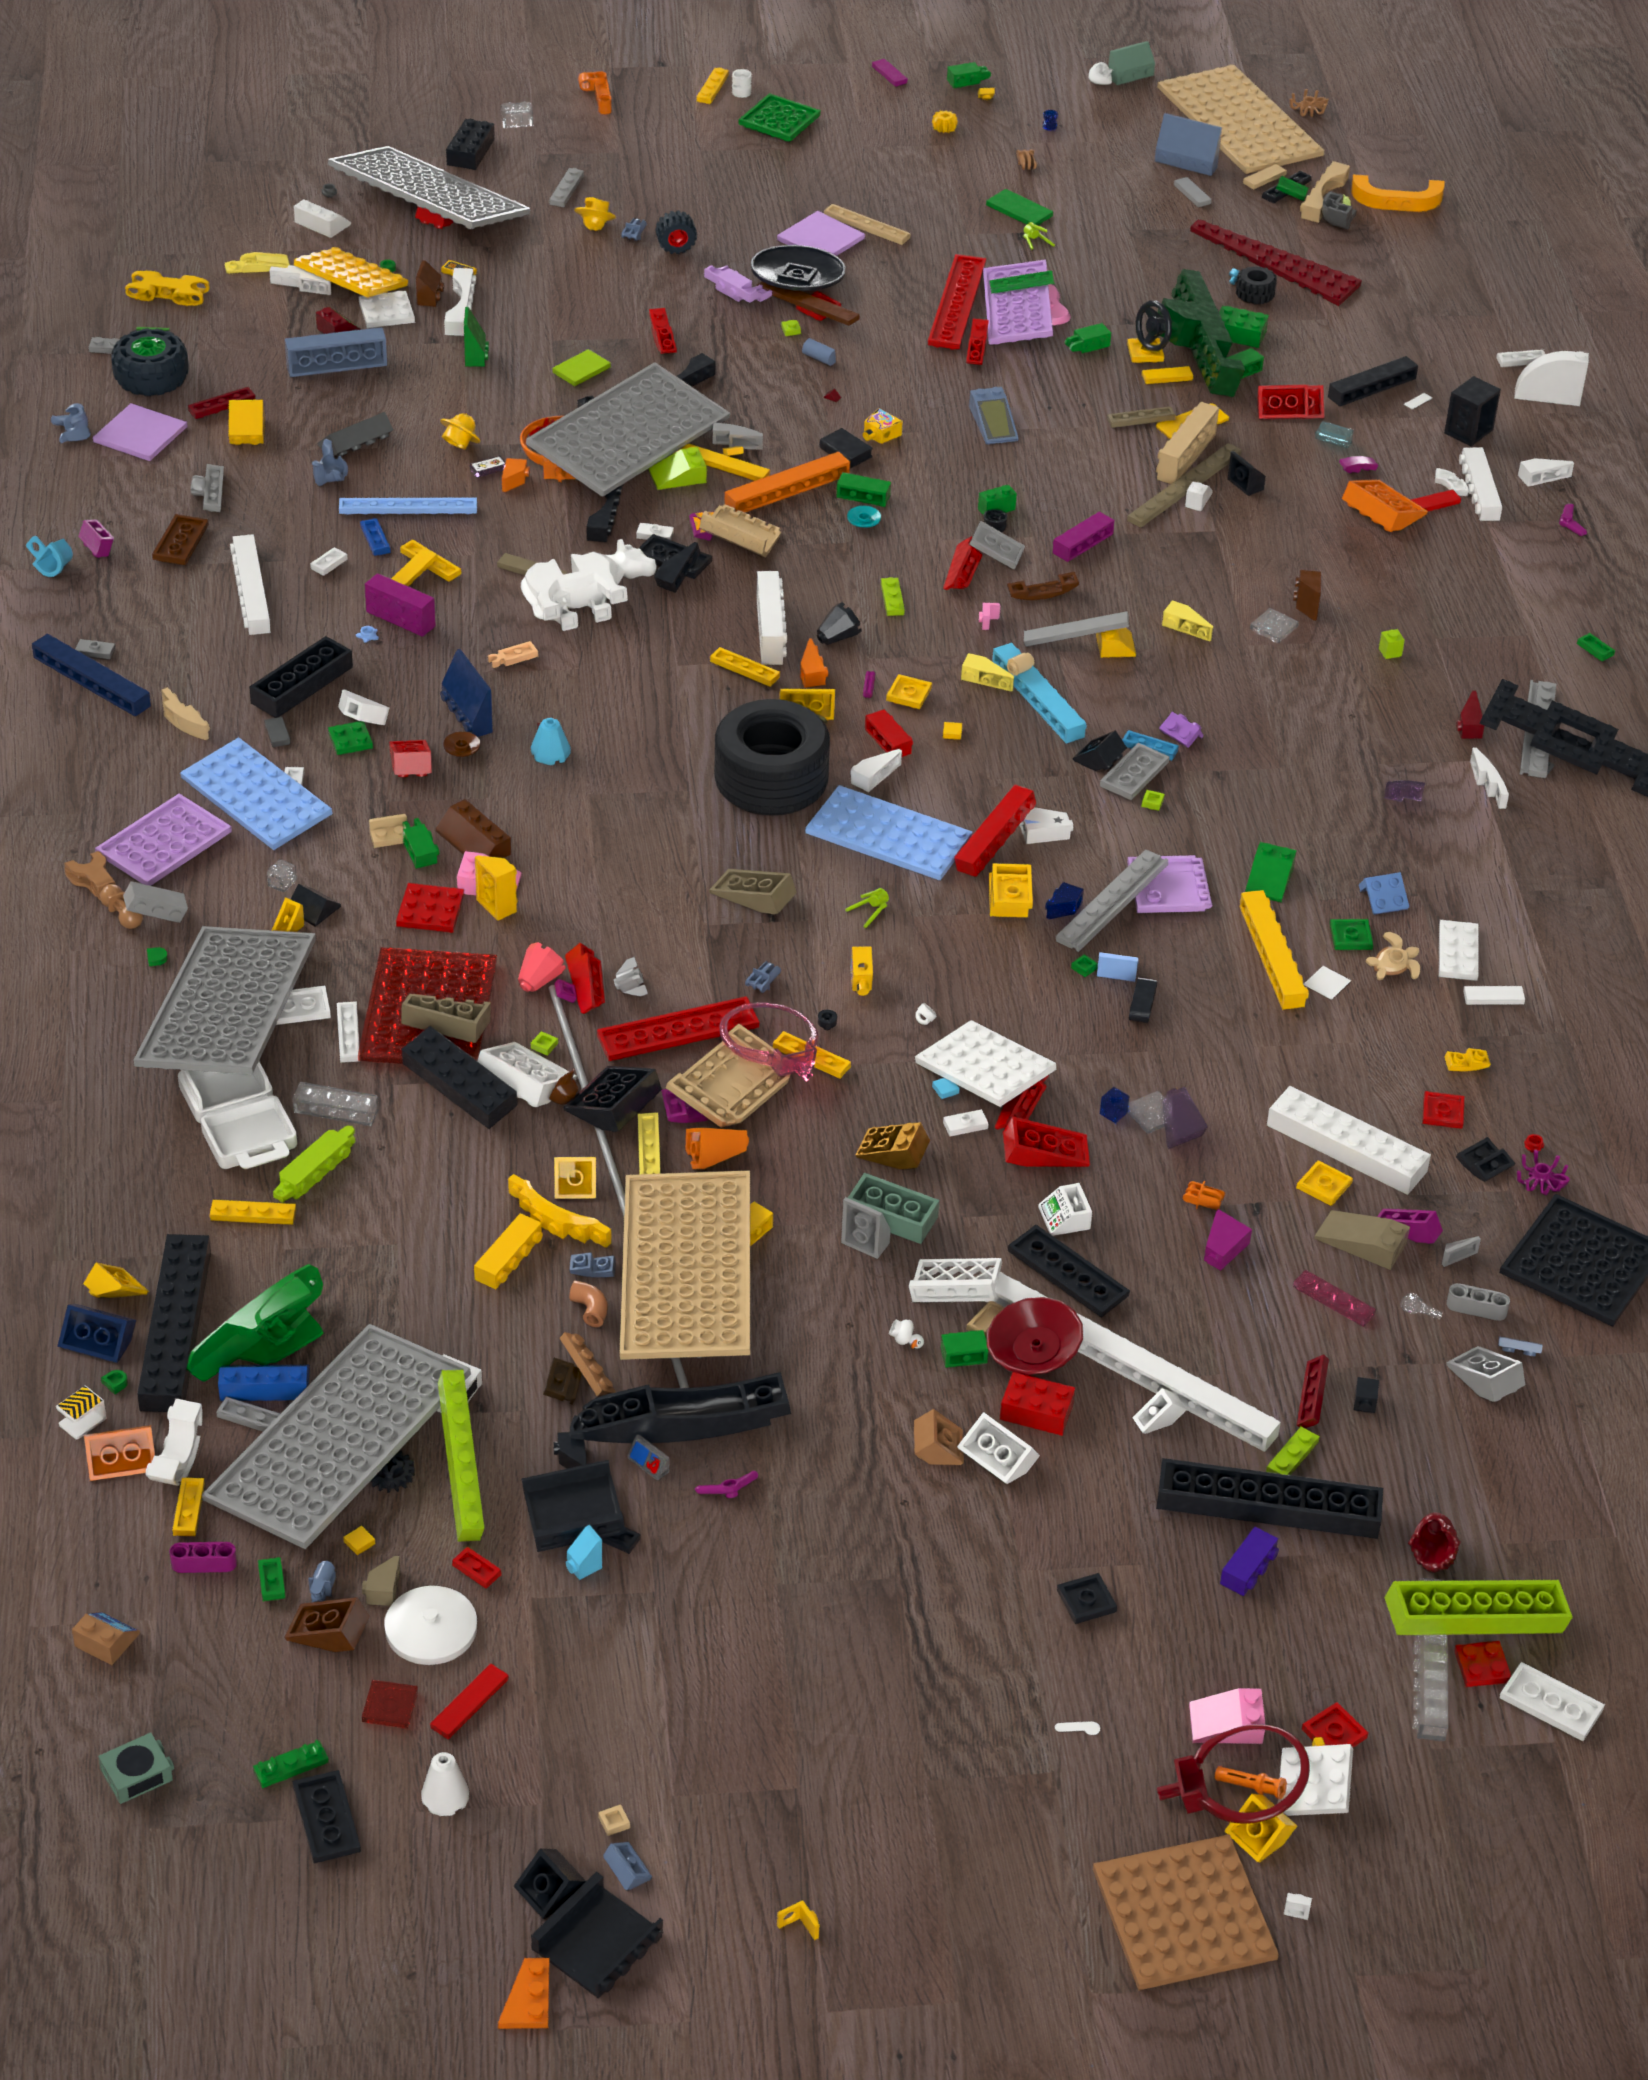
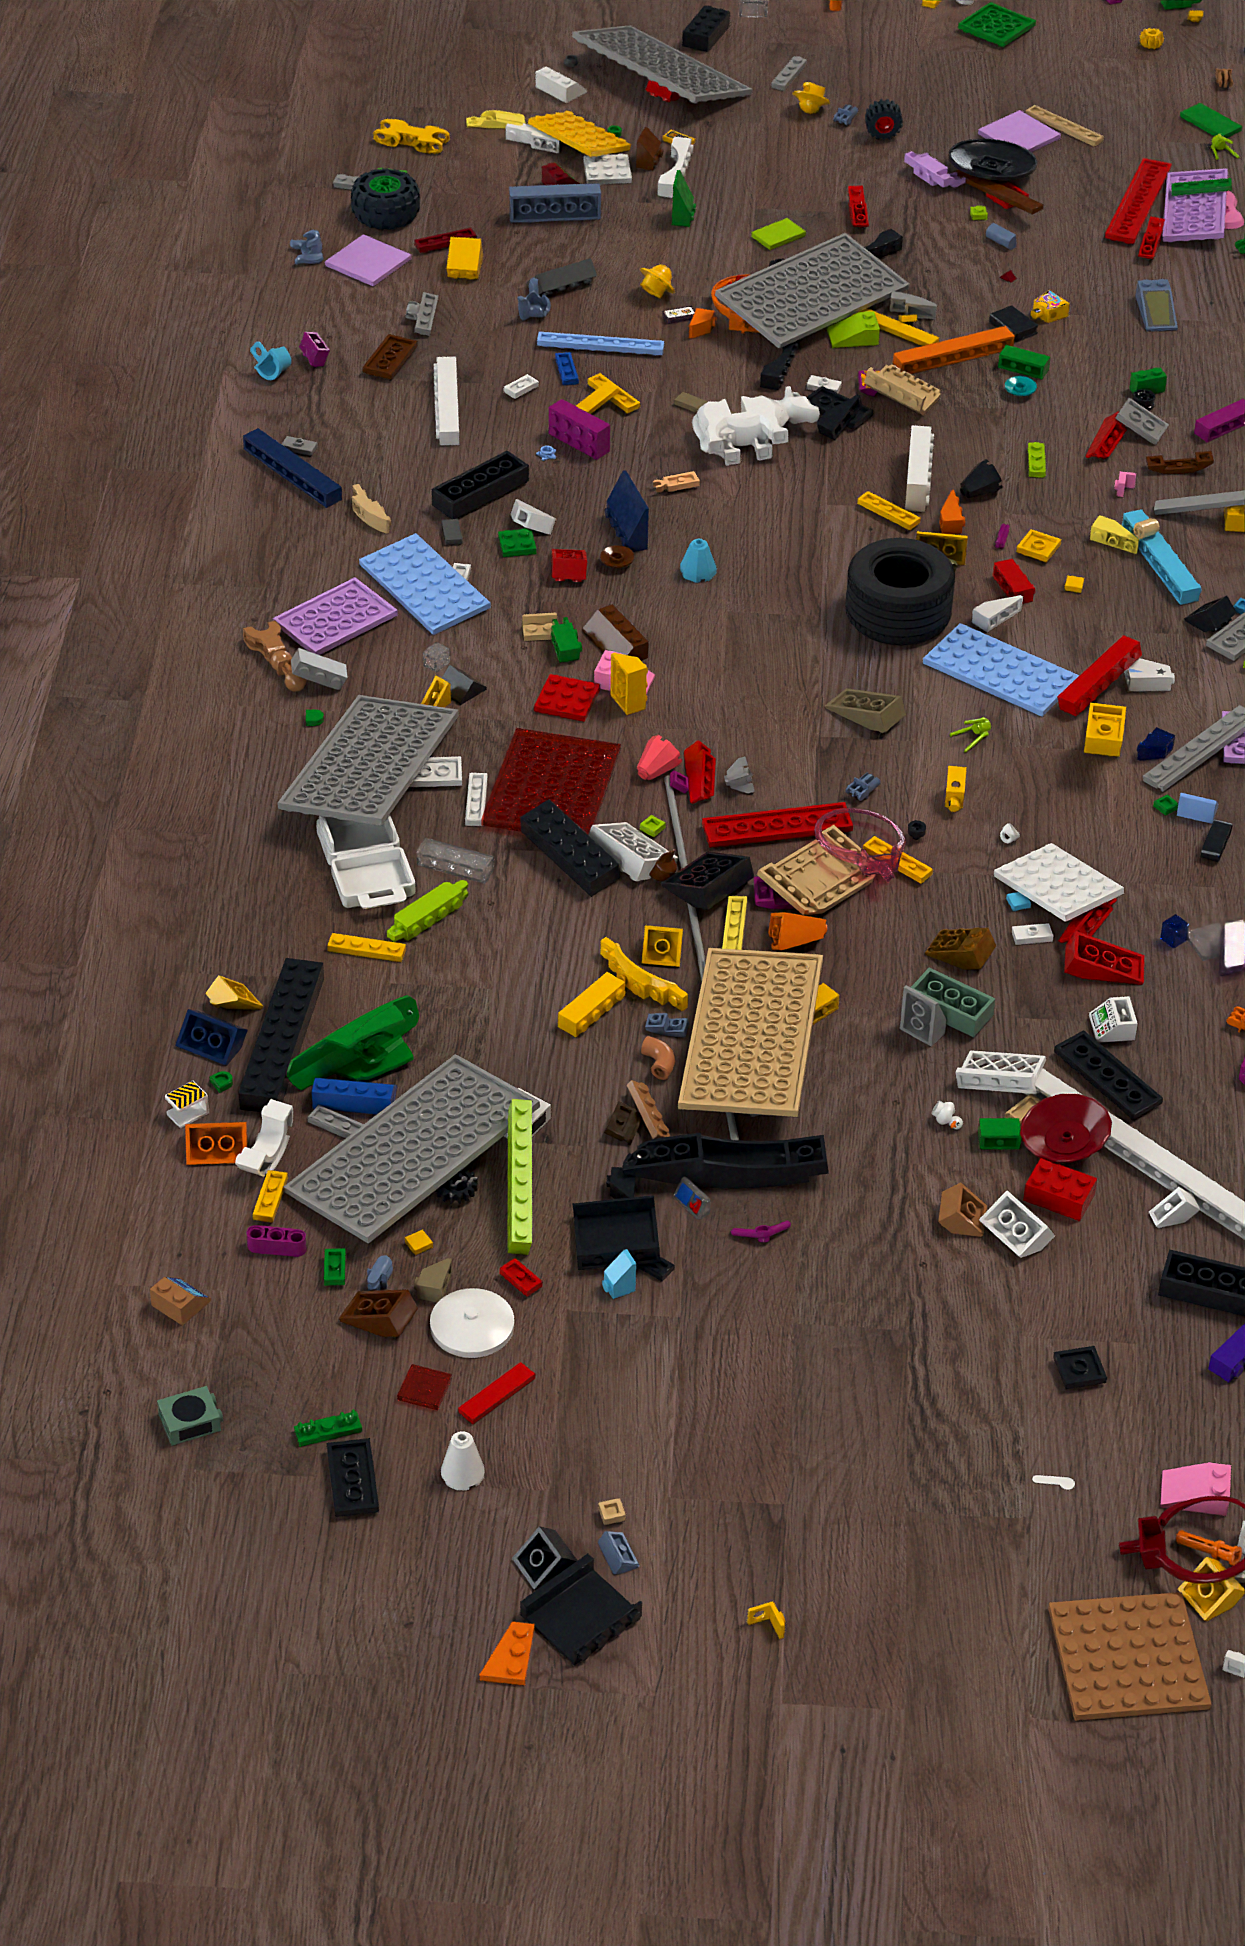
camera: 10 degrees right, 0 degrees up
(447, 1017) = (566, 793): dark tan wedge -> none

